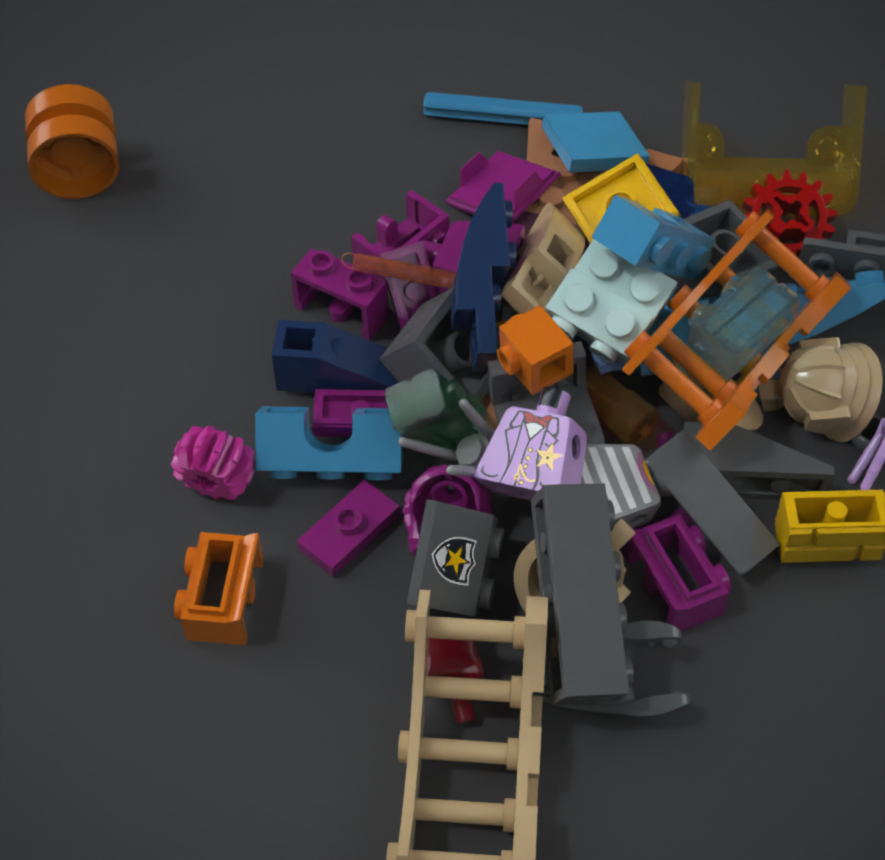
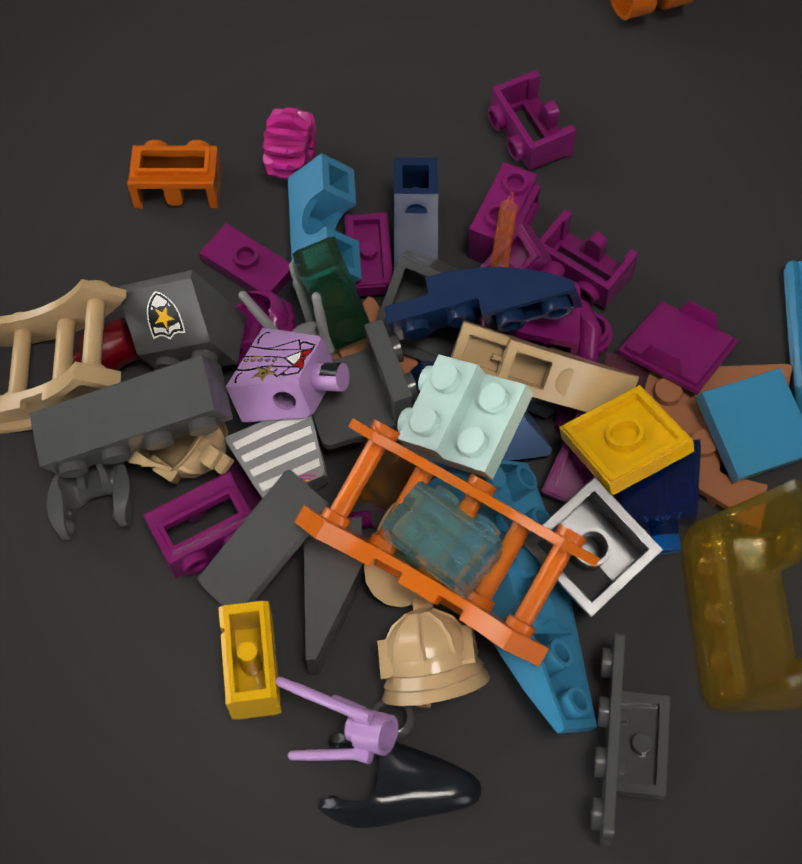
camera: 85 degrees right, 10 degrees up
(226, 269) = (520, 95): none -> magenta window
(535, 350) = (379, 346): orange brick -> none
(654, 239) = (507, 419): dark azure arch -> none
(796, 204) = (678, 606): red gear -> none

